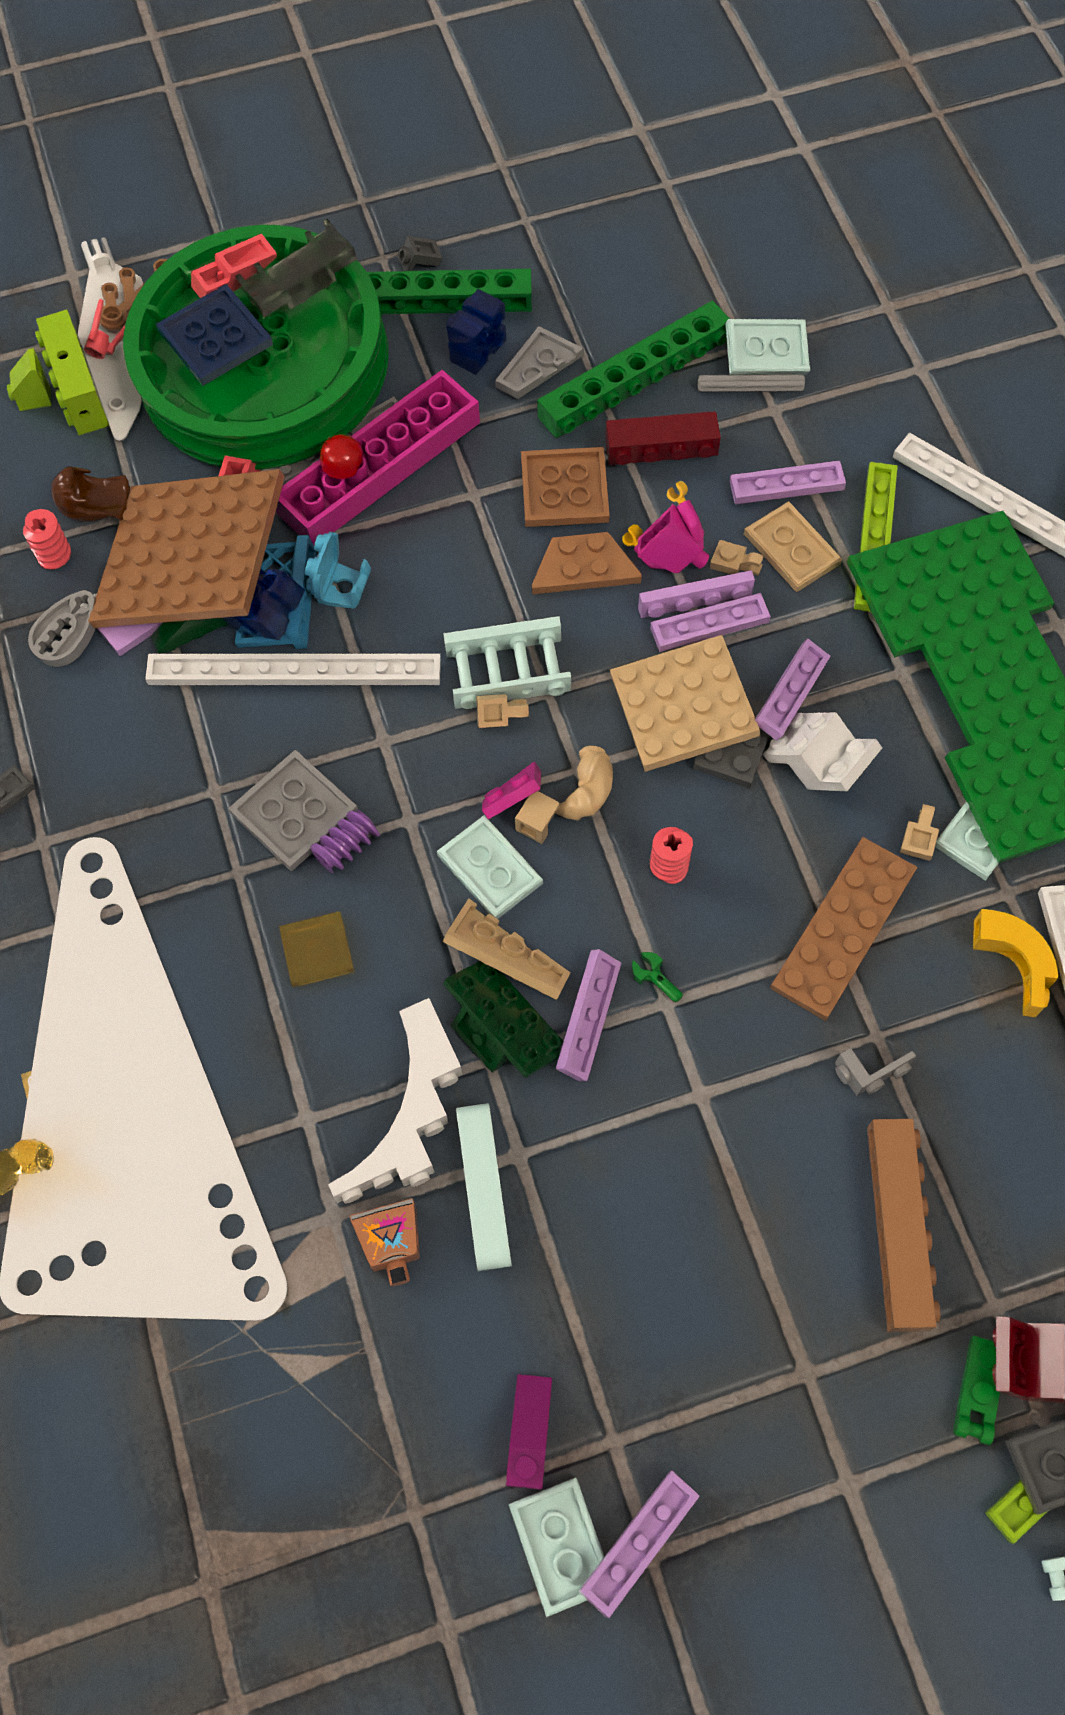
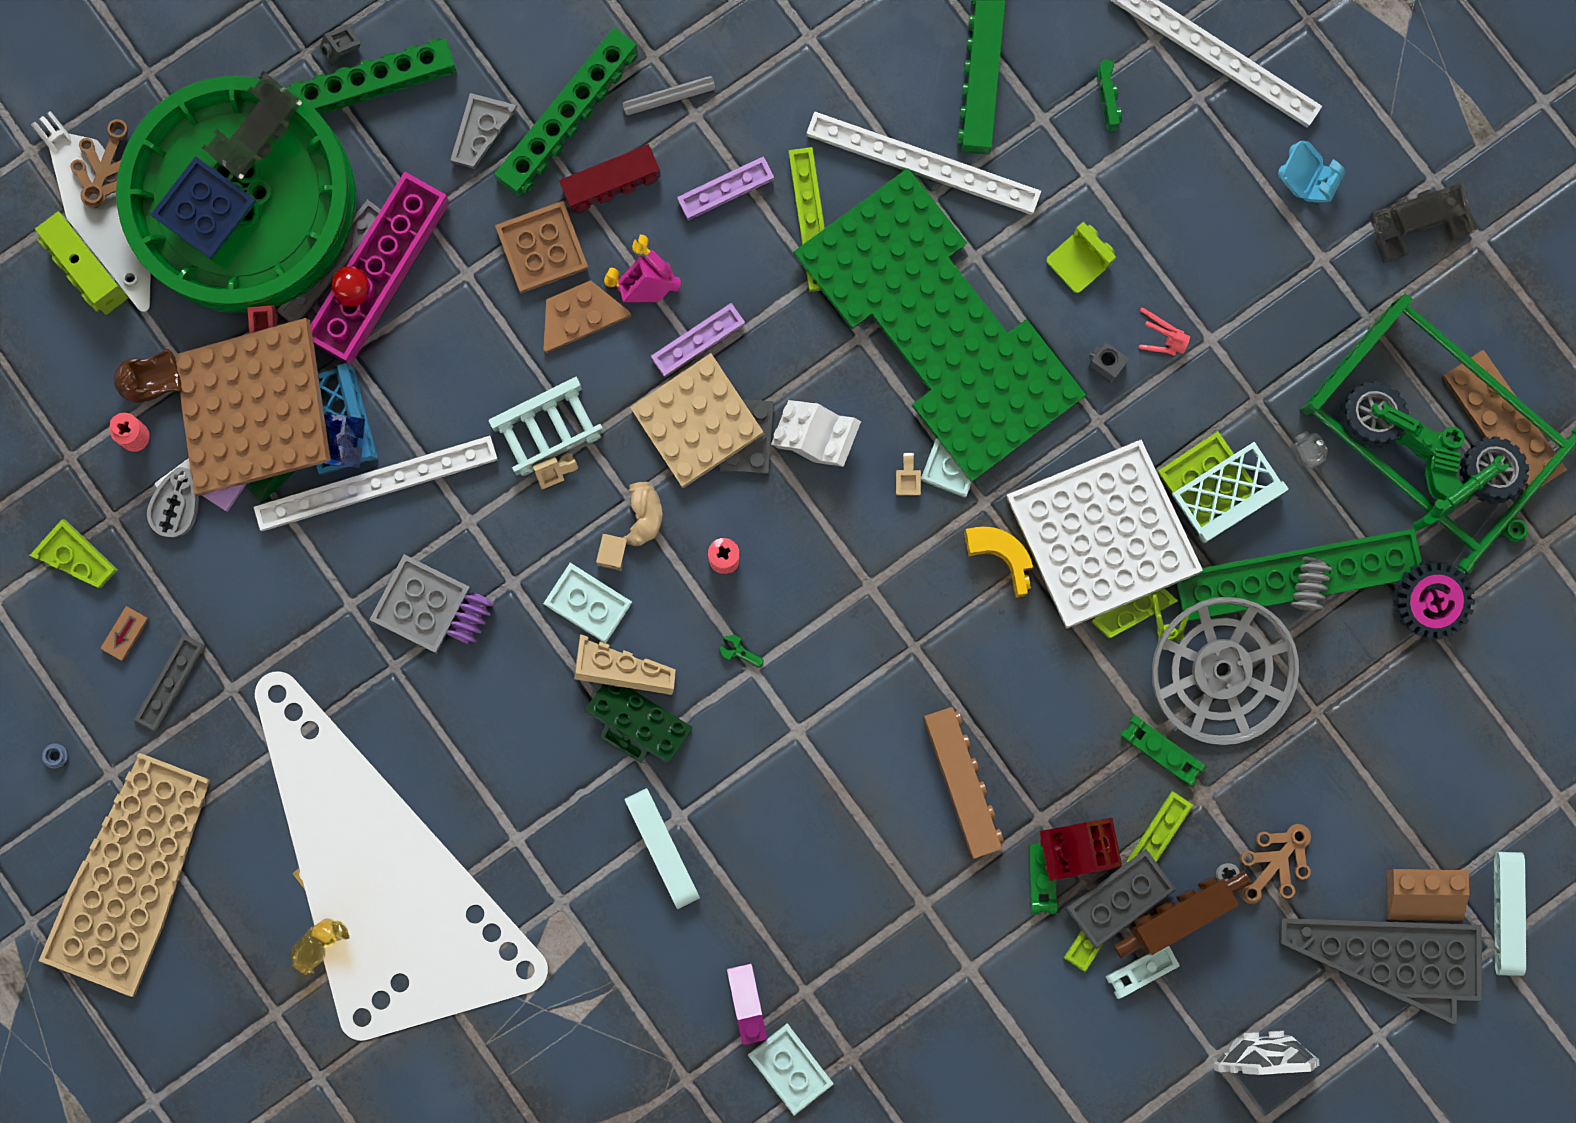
camera: 25 degrees left, 15 degrees up
(29, 383) = (46, 283): lime slope -> none
(98, 341) = (90, 225): coral plant -> none
(231, 262) = (194, 135): coral slope -> none
(316, 949) = (478, 709): clear yellow tile -> none
(326, 570) = (377, 383): medium azure piece -> none
(389, 1238) = (608, 907): nougat torso -> none
(421, 1111) = (596, 842): white arch -> none
(476, 331) = (419, 119): clear blue brick -> none
(513, 791) = (587, 537): dark pink wing -> none
(588, 1015) = (699, 699): lavender plate -> none
(638, 1544) = (841, 1051): lavender plate -> none
(695, 594) = (671, 324): lavender plate -> none
(733, 557) = (698, 274): tan plate -> none
(767, 346) = (673, 58): light aqua tile -> none
(792, 546) = (745, 247): tan tile -> none
(792, 689) = (779, 384): lavender plate -> none
(843, 928) = (869, 569): medium nougat plate -> none
(853, 1073) = (901, 682): light grey bracket -> none

